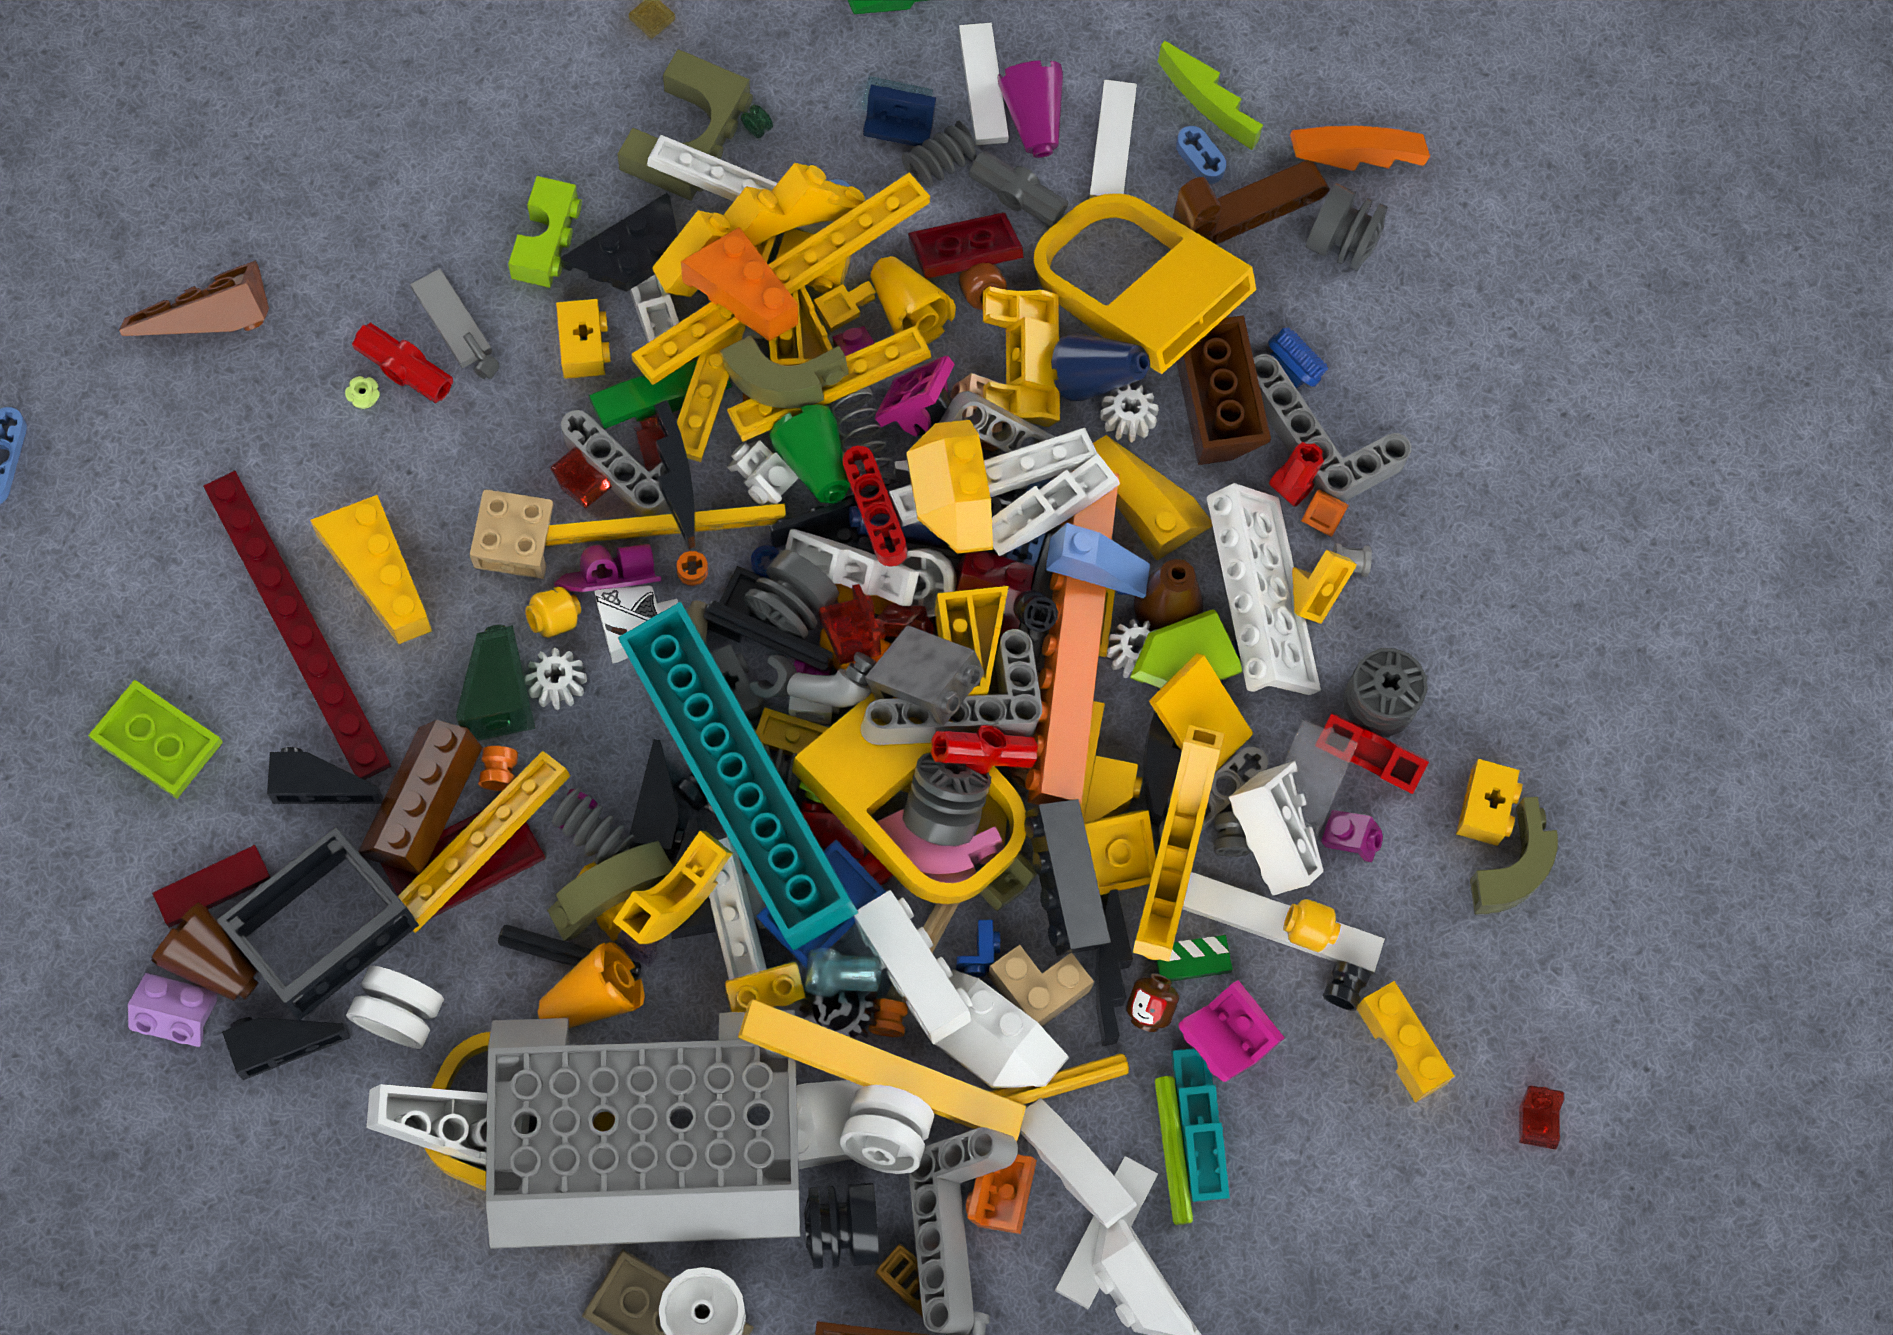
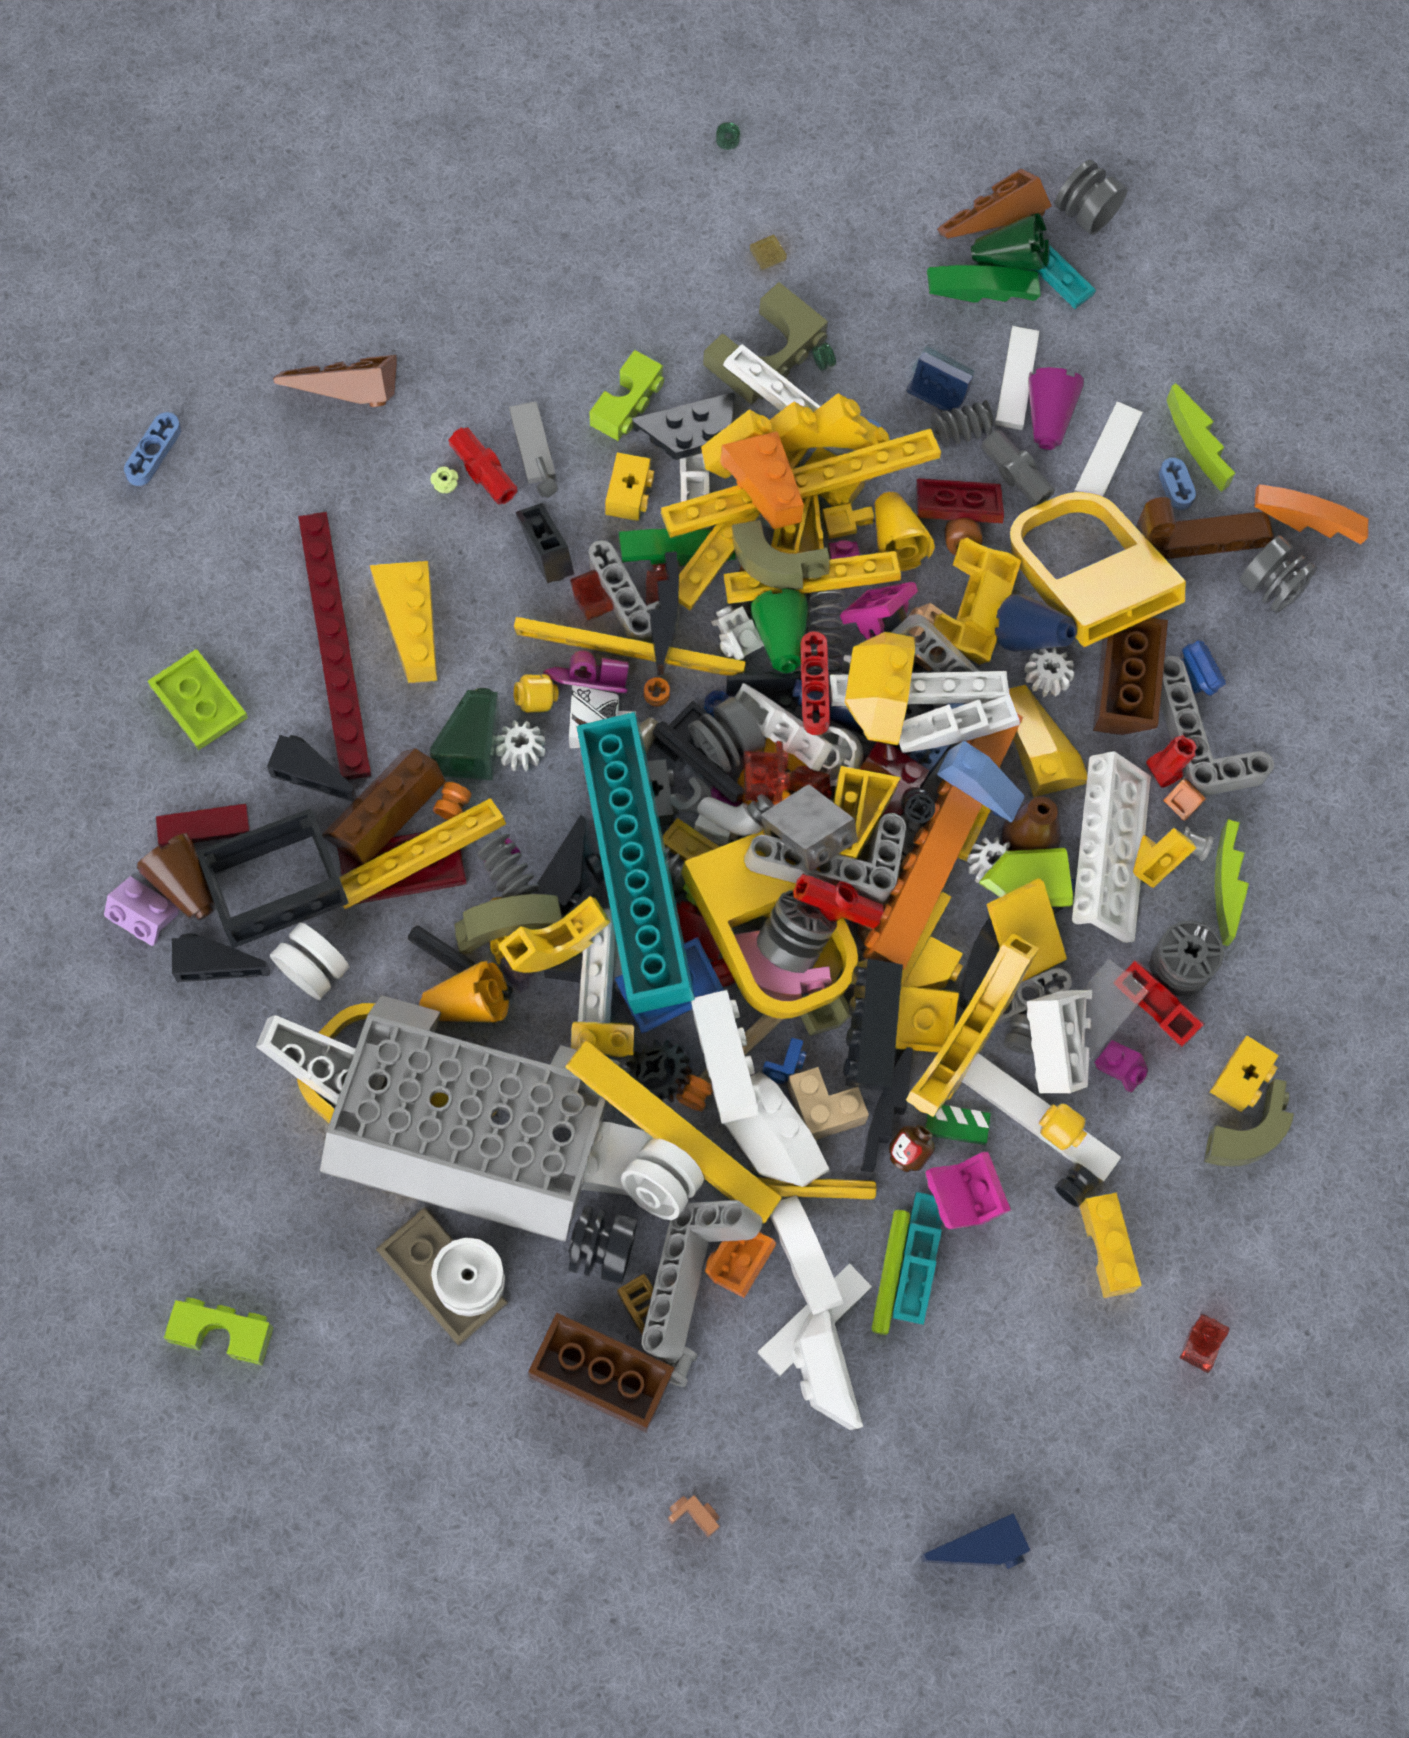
camera: 20 degrees right, 0 degrees up
(507, 432) = (546, 543): none -> black slope
(511, 534) = (522, 622): tan bracket -> none
(832, 972) = (659, 1041): clear light blue piece -> none
(1406, 601) = (1229, 891): none -> lime slope

